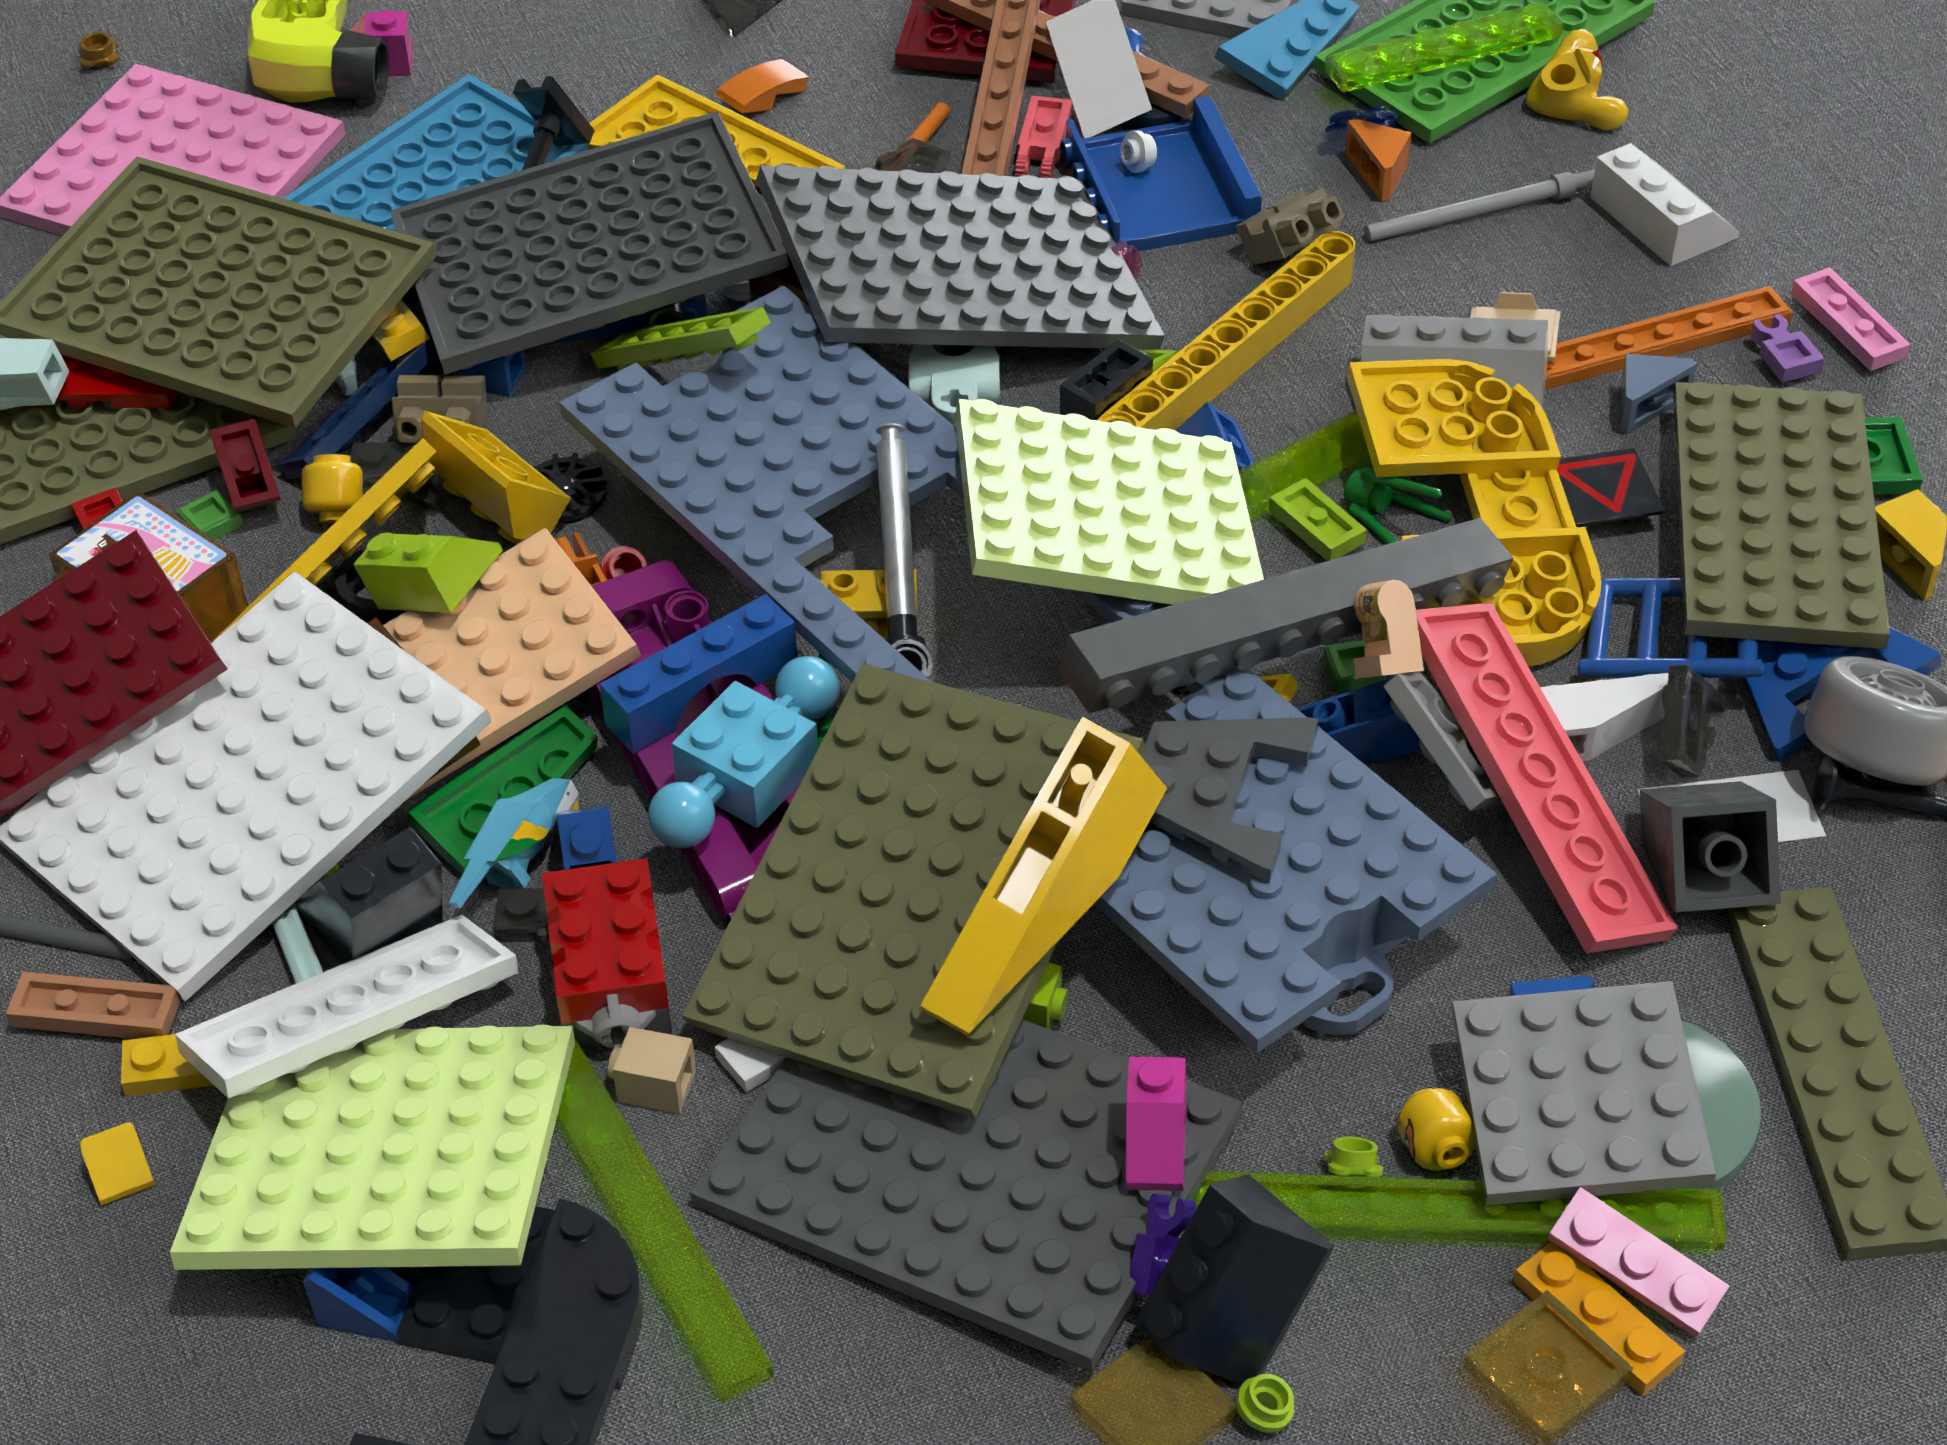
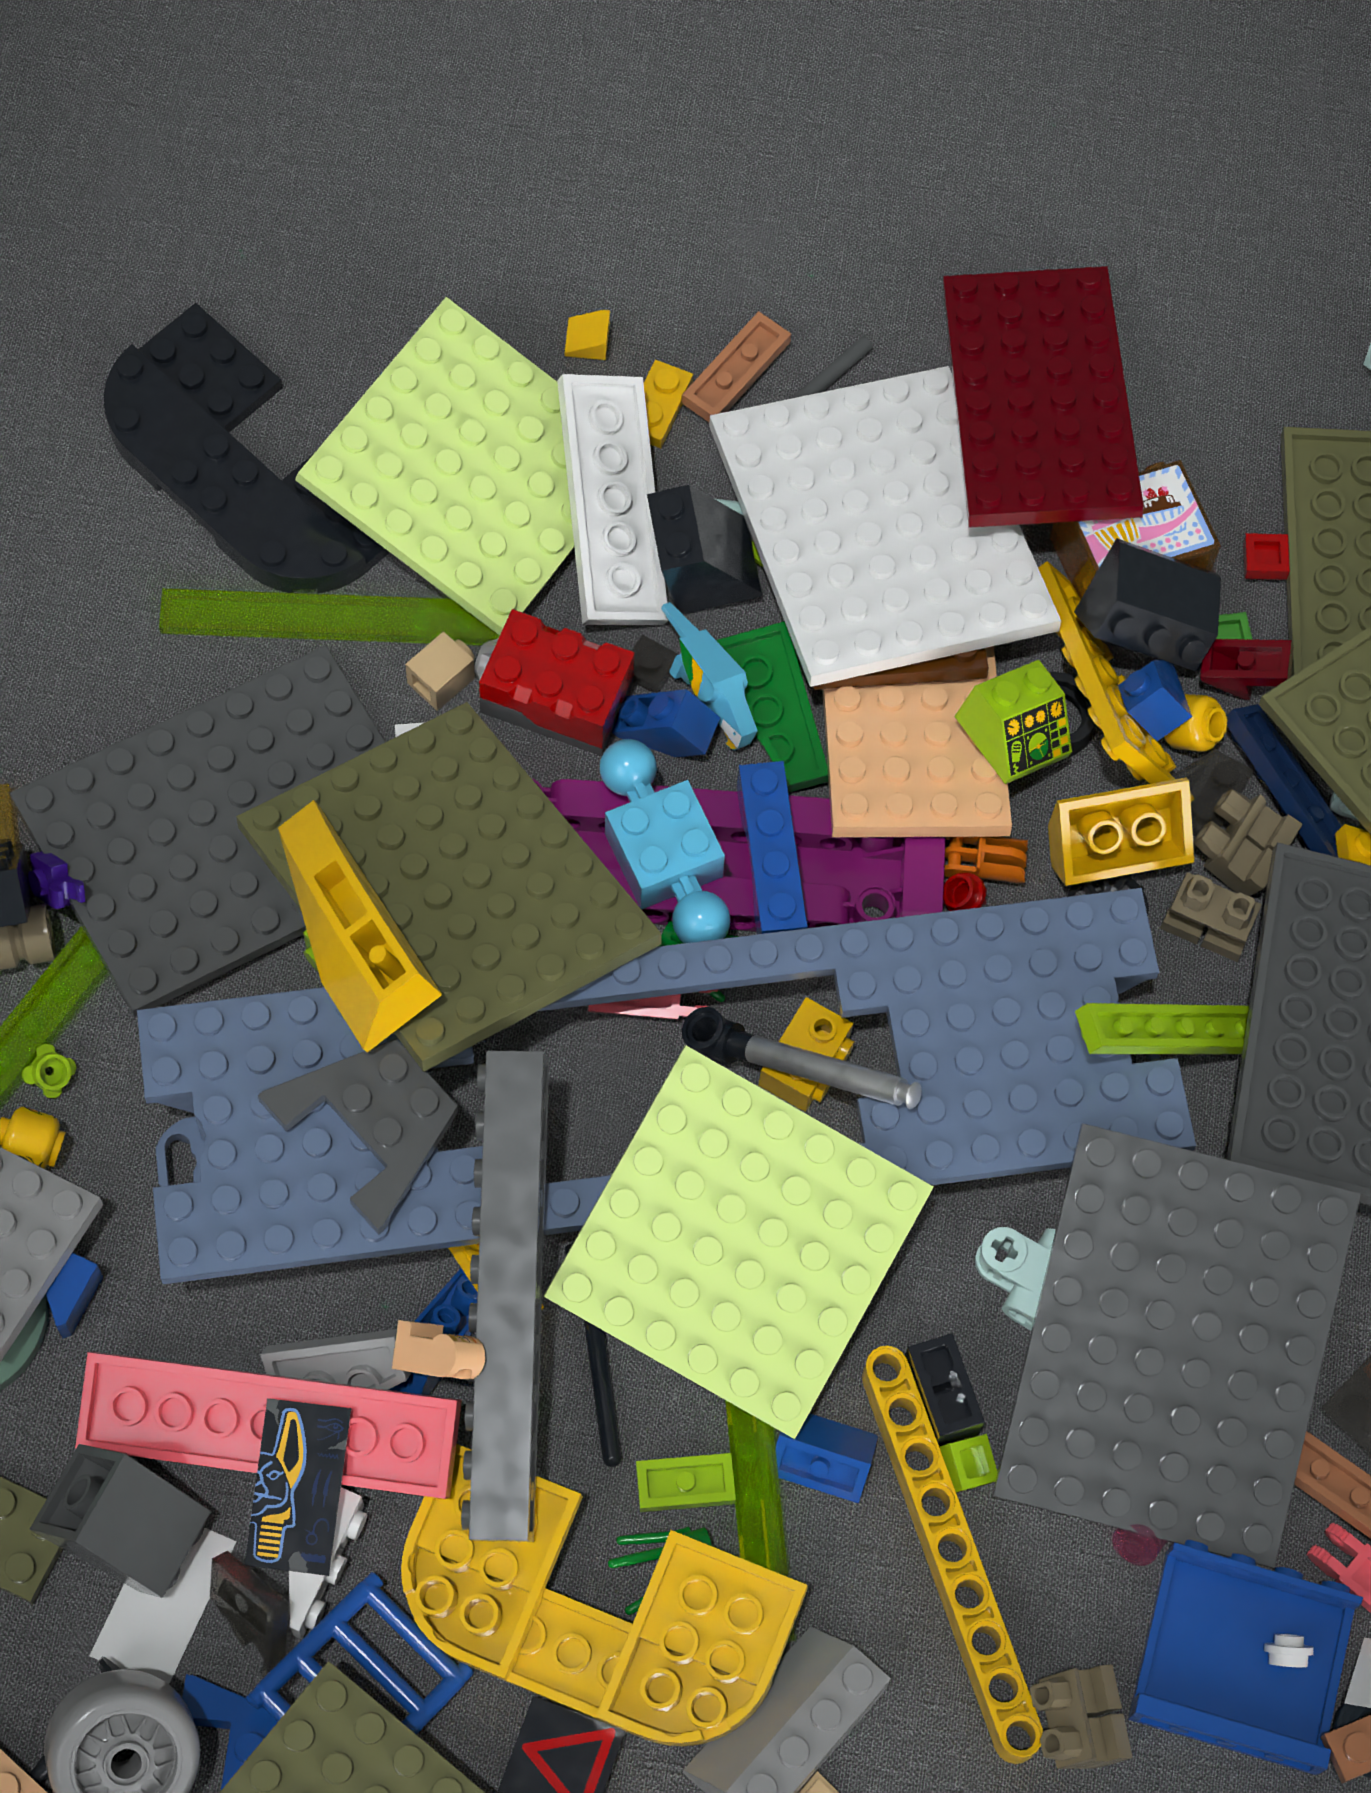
camera: 115 degrees right, 20 degrees up
(241, 521) = (1153, 605): none -> black slope
(319, 506) = (1155, 698): none -> blue slope
(530, 404) = (1203, 904): none -> dark tan hips
(1156, 1123) = (138, 923): dark pink slope -> none
(1569, 716) = (298, 1487): none -> black sticker

